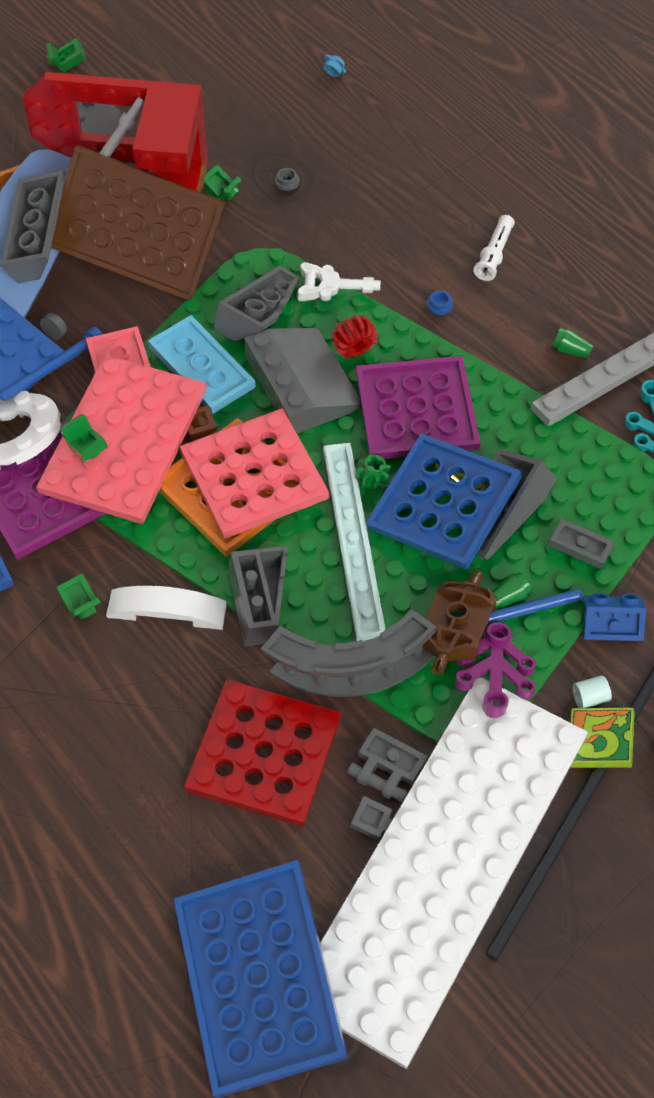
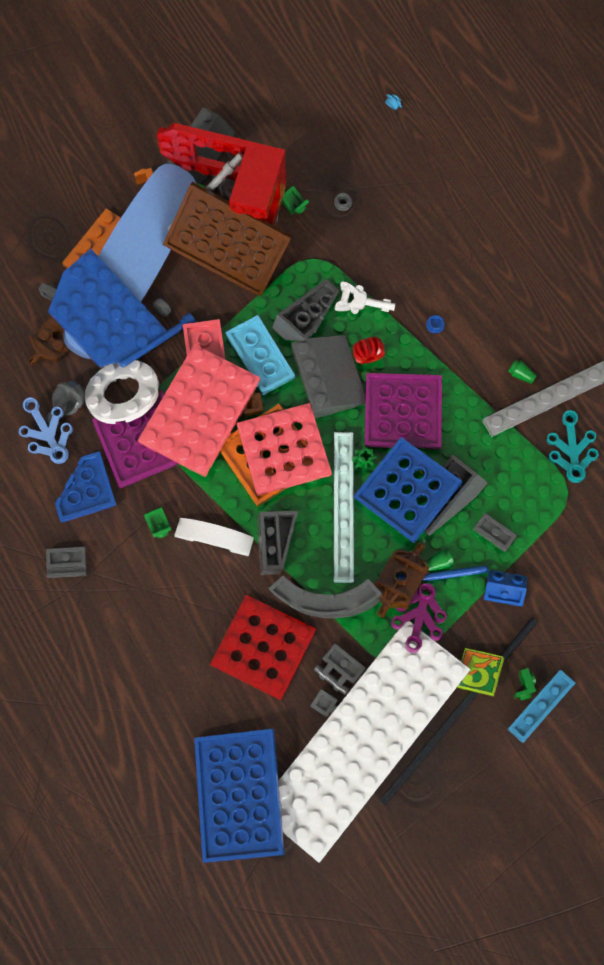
camera: 10 degrees right, 15 degrees up
(32, 226) = (154, 234): dark grey slope -> none
(66, 56) = (195, 66): green bracket -> none
(82, 438) = (172, 413): green bracket -> none
(503, 228) = (480, 288): white pin -> none
(591, 692) = (480, 639): light aqua gear -> none

